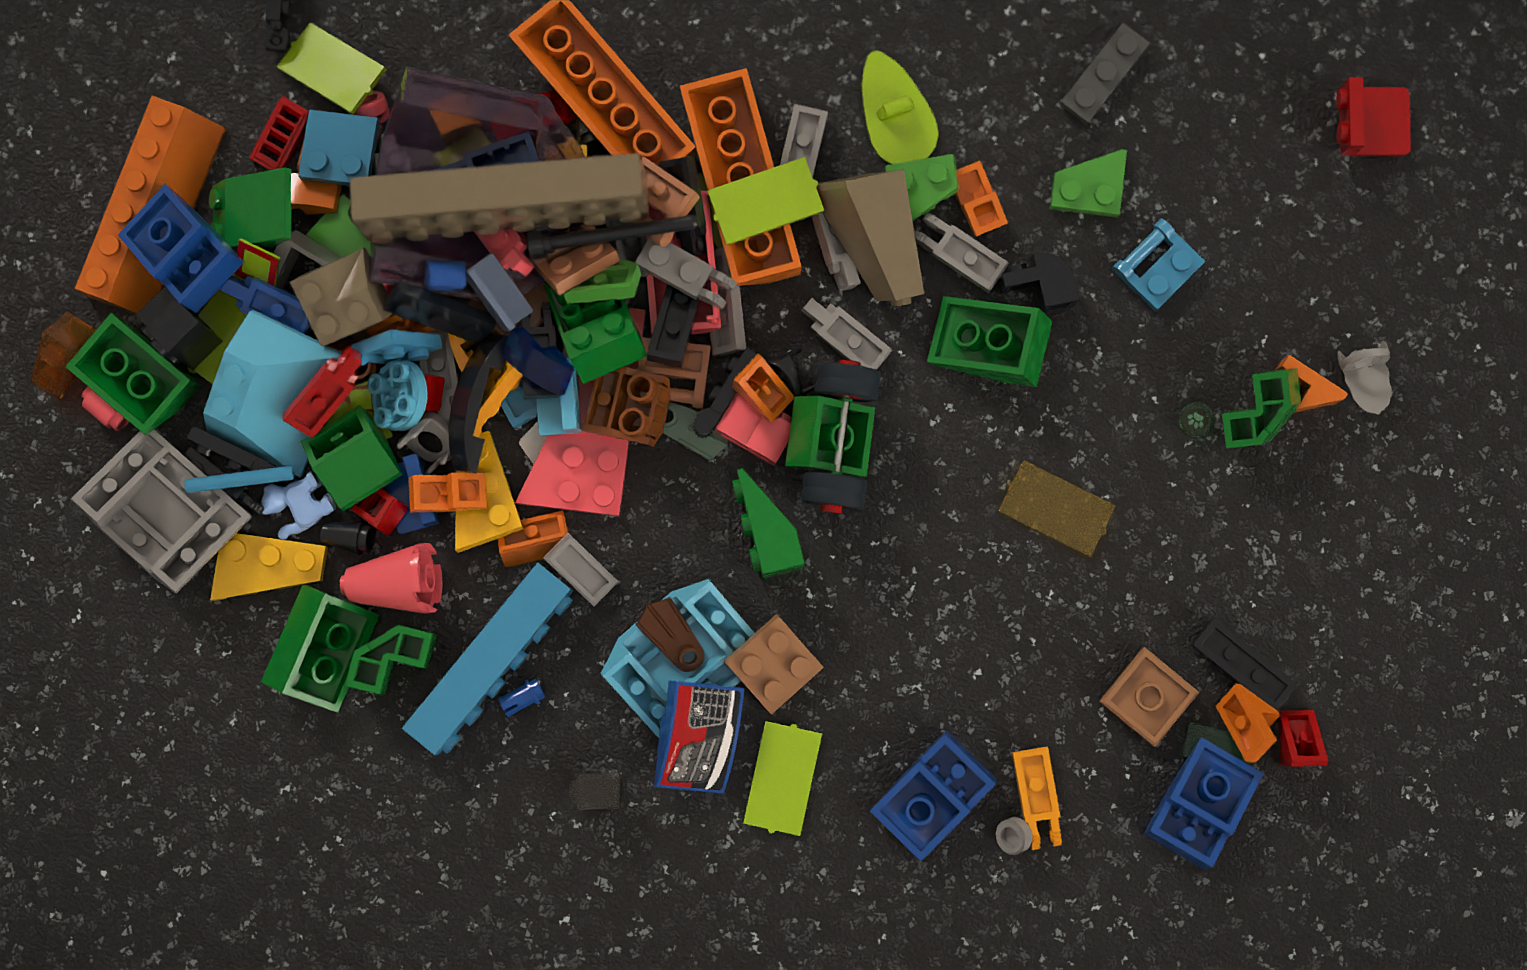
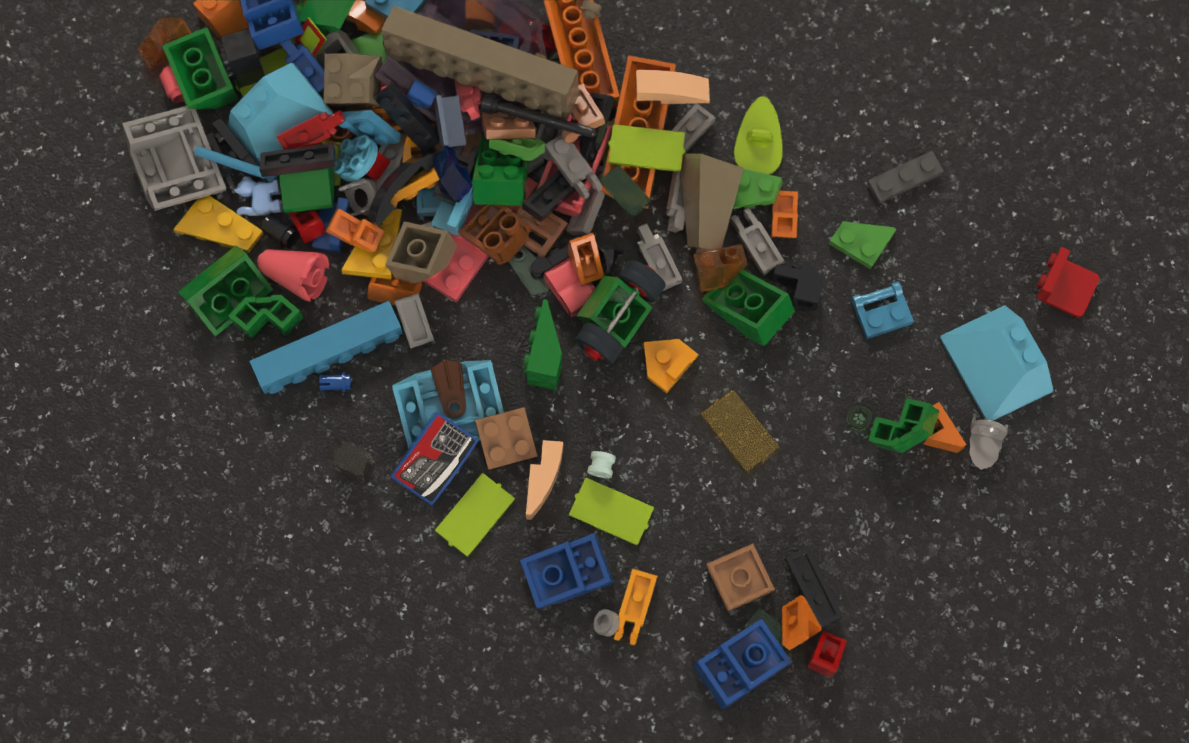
camera: 25 degrees right, 10 degrees down
(327, 438) = (297, 159): none -> black plate
(547, 482) = (420, 252): none -> dark tan slope
(601, 48) = (590, 10): none -> dark tan plate
(759, 105) = (671, 87): none -> light nougat slope
(767, 273) = (625, 191): none -> clear green tile
(846, 690) = (543, 476): none -> light nougat slope
(909, 639) = (601, 464): none -> light aqua wheel
(924, 464) = (667, 361): none -> light orange plate
(932, 311) = (719, 266): none -> clear orange slope
(948, 690) = (611, 511): none -> lime piece
(1333, 262) = (998, 362): none -> medium azure slope

